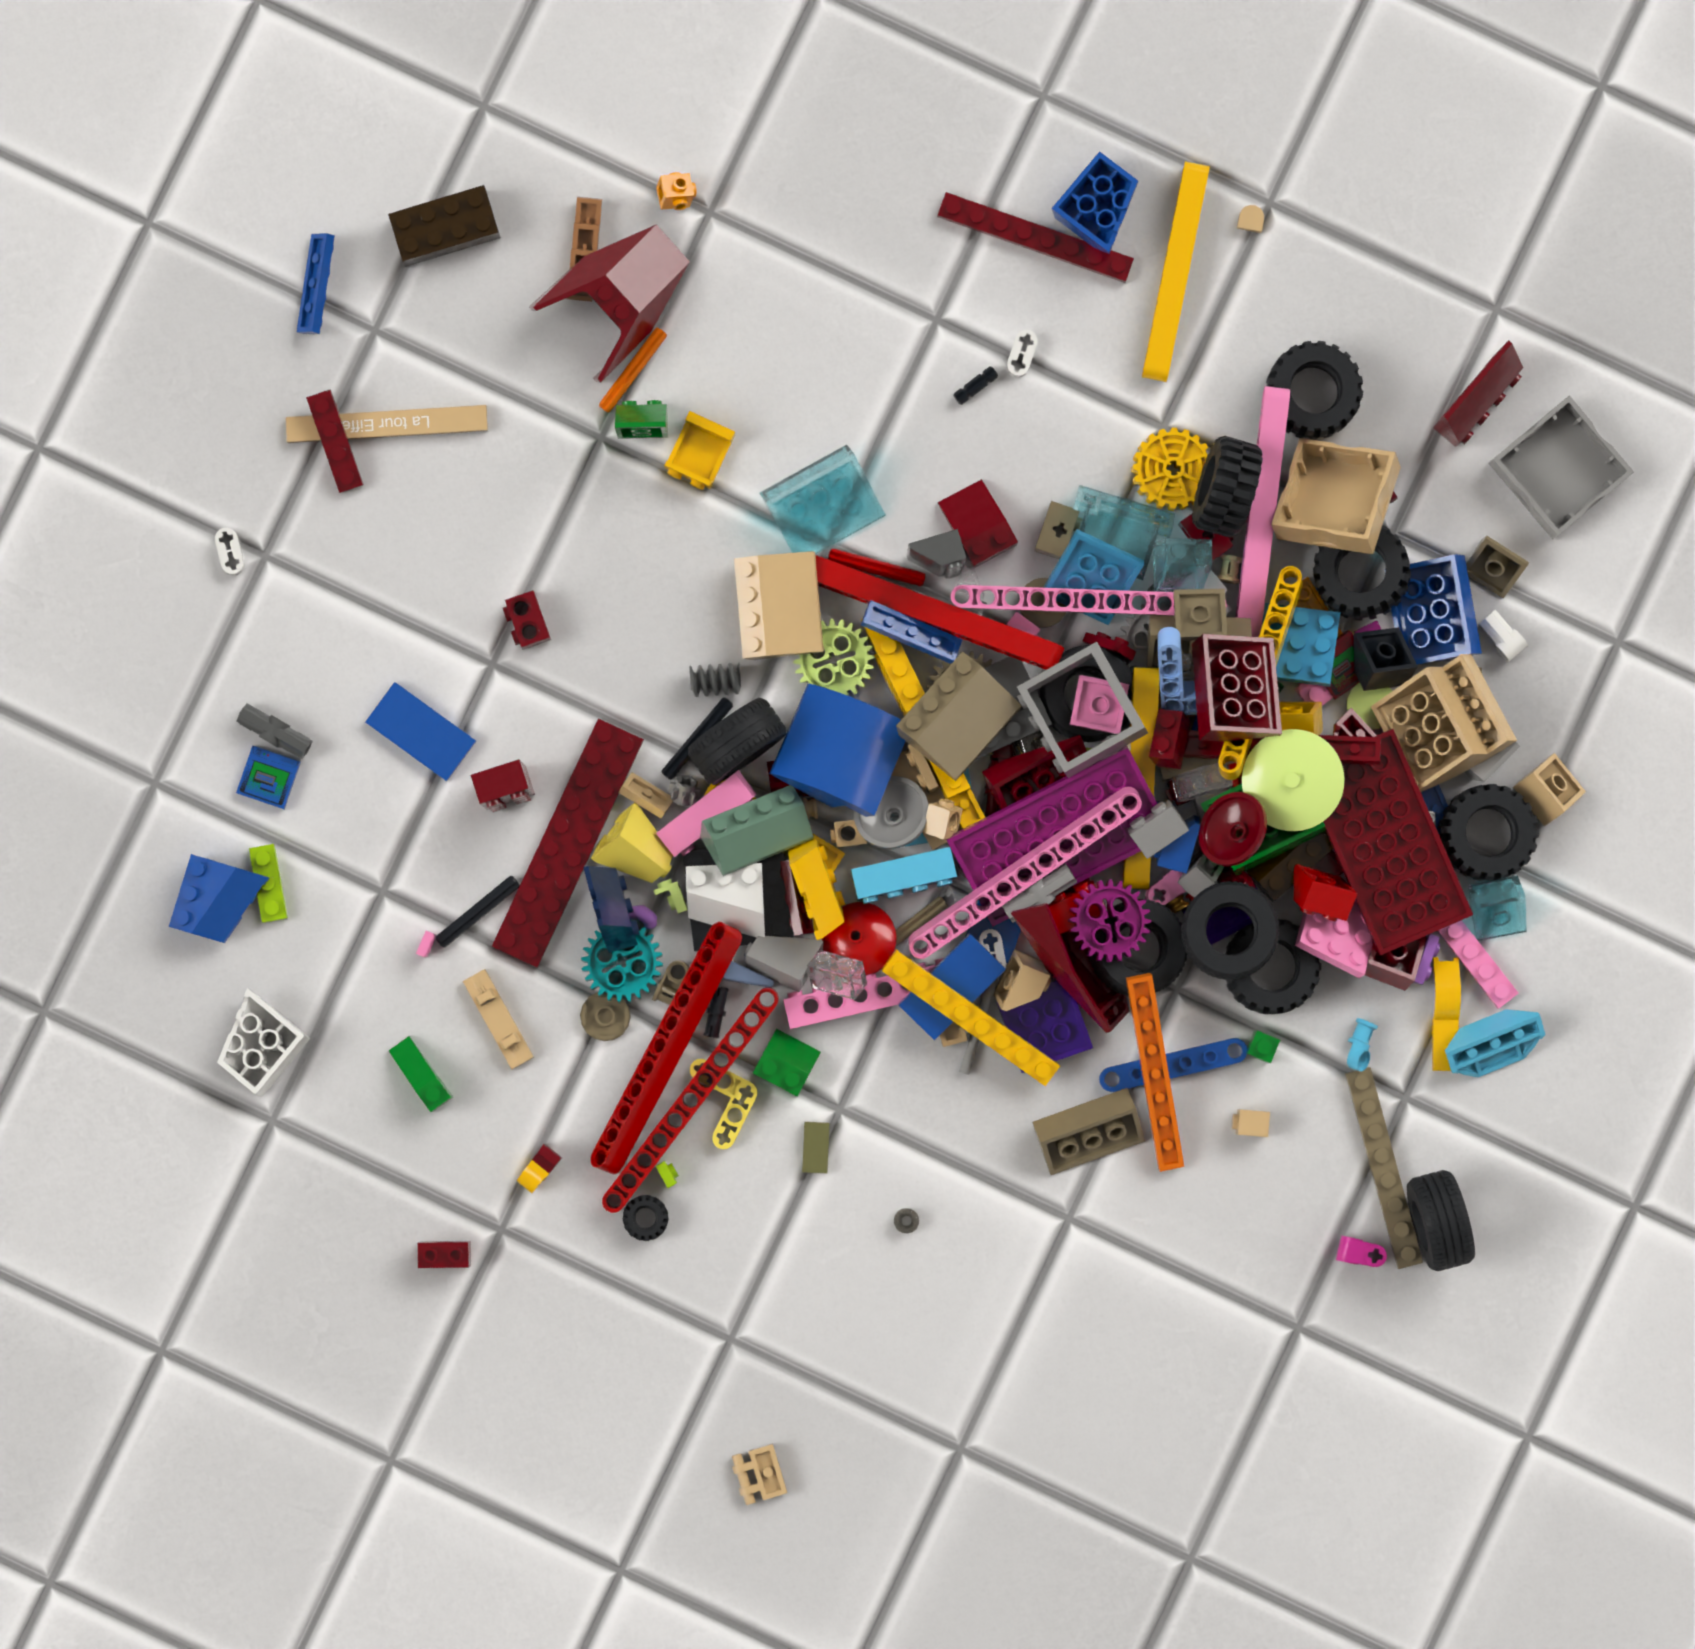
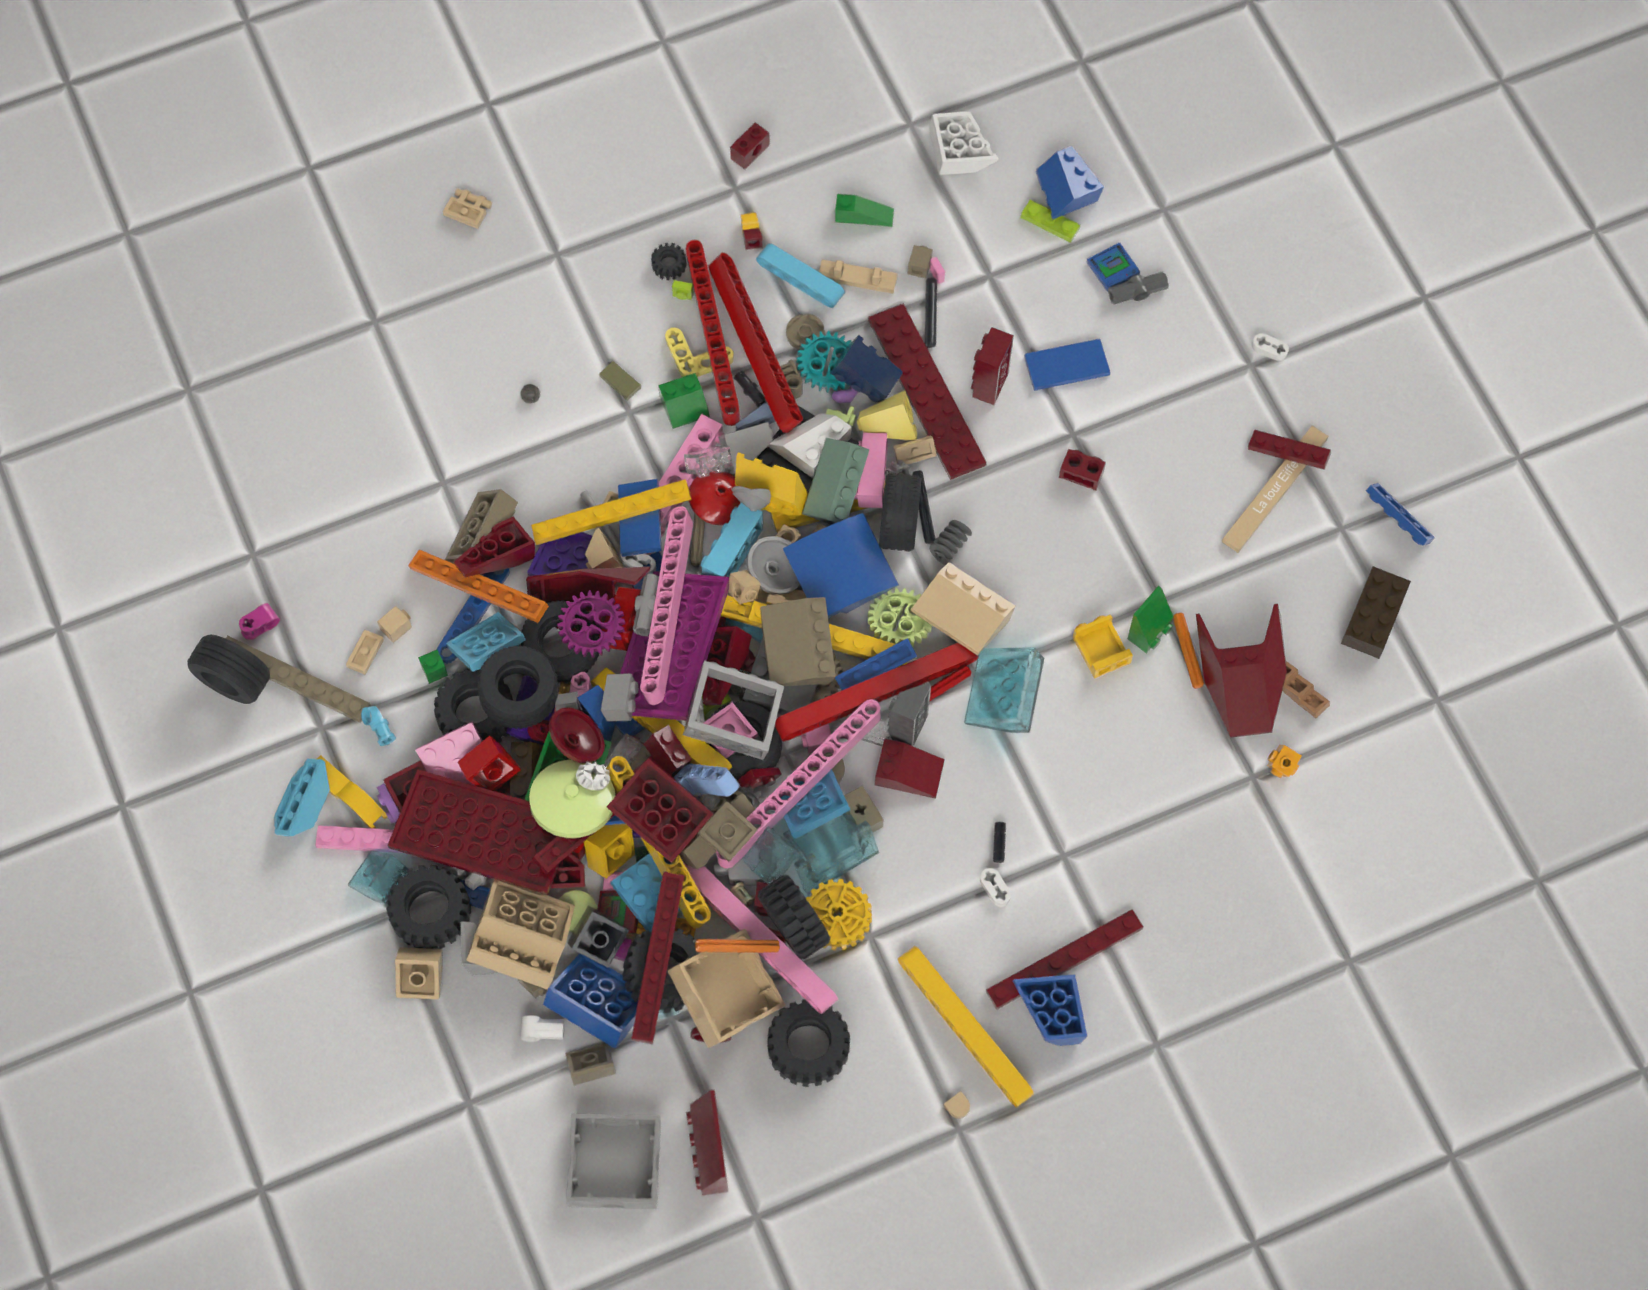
camera: 140 degrees right, 20 degrees down
(429, 969) = (919, 261): none -> dark tan brick
(548, 1073) = (800, 275): none -> medium azure beam
(848, 888) = (752, 498): none -> light grey hat
(1100, 1090) = (501, 549): none -> dark red wedge
(1203, 1013) = (484, 640): none -> medium azure plate
(1271, 776) = (585, 779): none -> white gear
(1299, 510) = (737, 945): none -> orange axle
(1302, 1125) = (364, 652): none -> tan plate
(1368, 572) = (657, 958): none -> dark red plate

